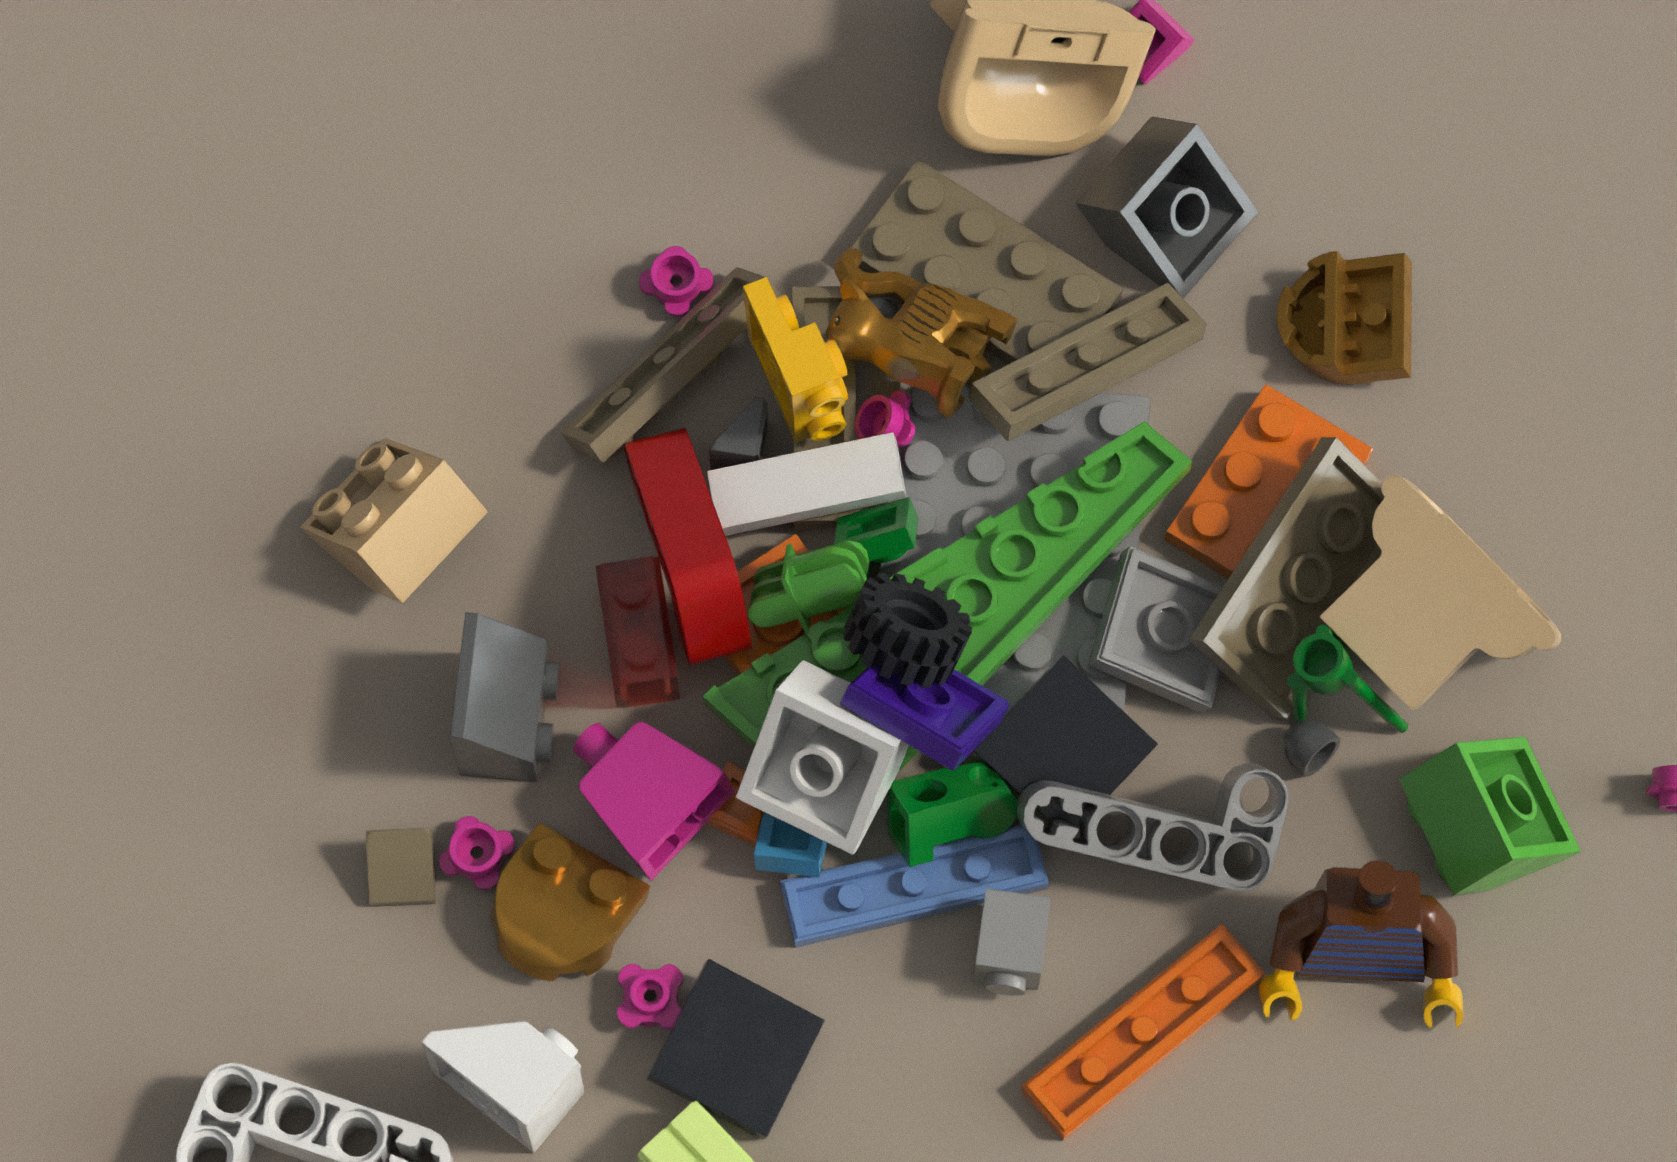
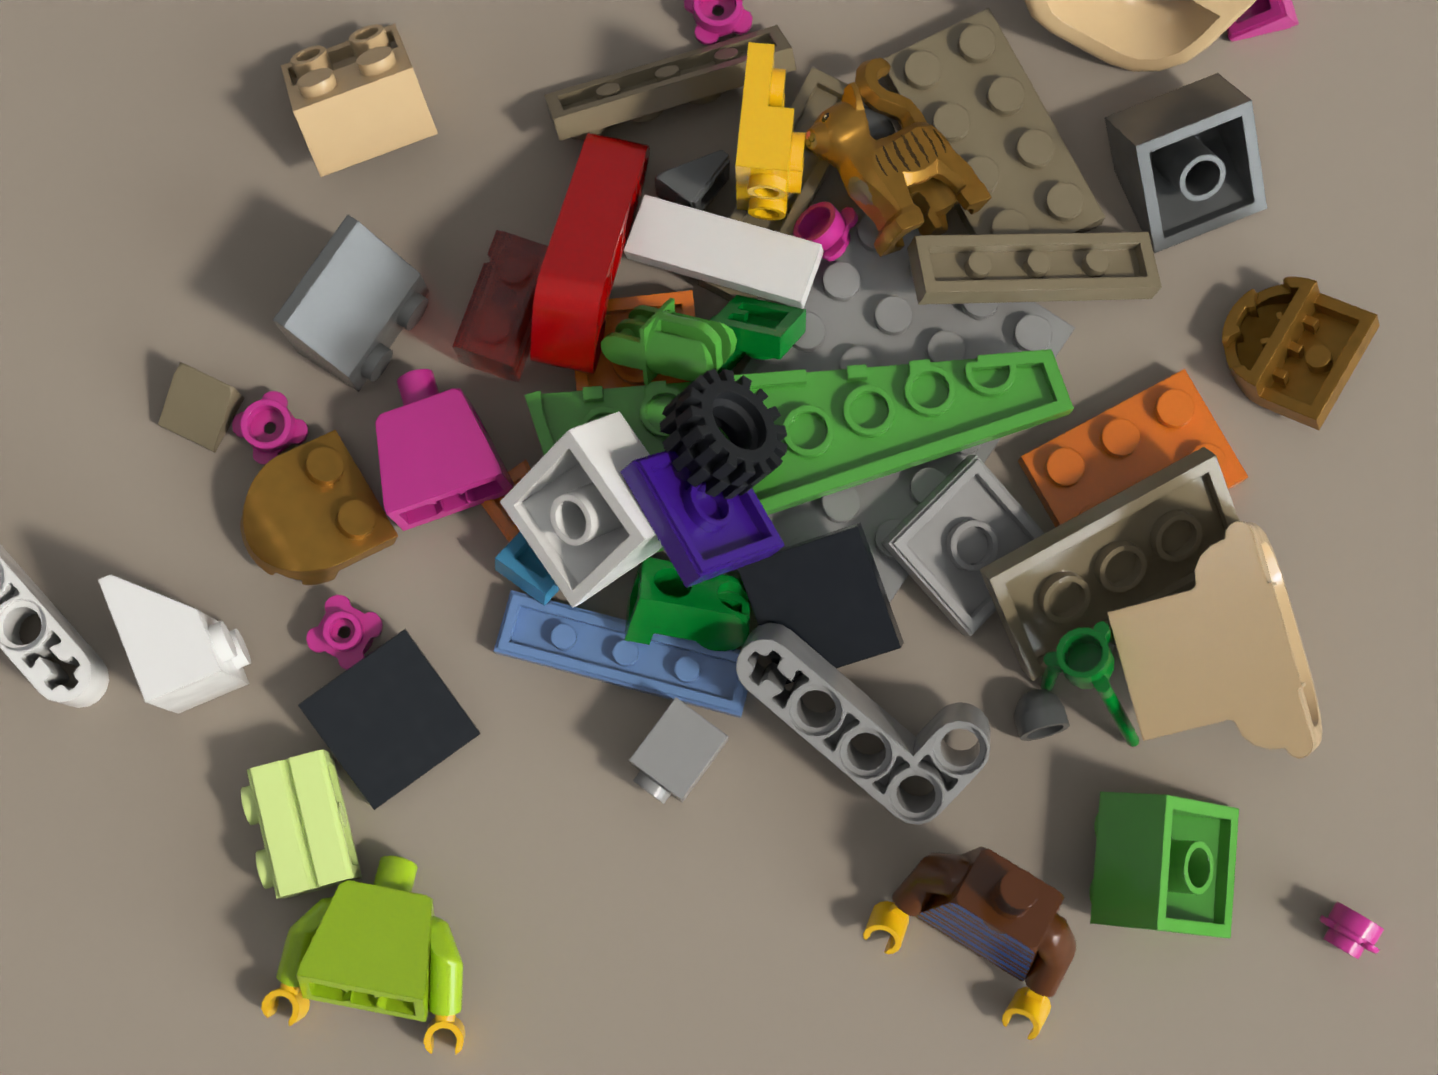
camera: 30 degrees right, 10 degrees up
(1142, 1032) = (751, 891): orange tile -> none

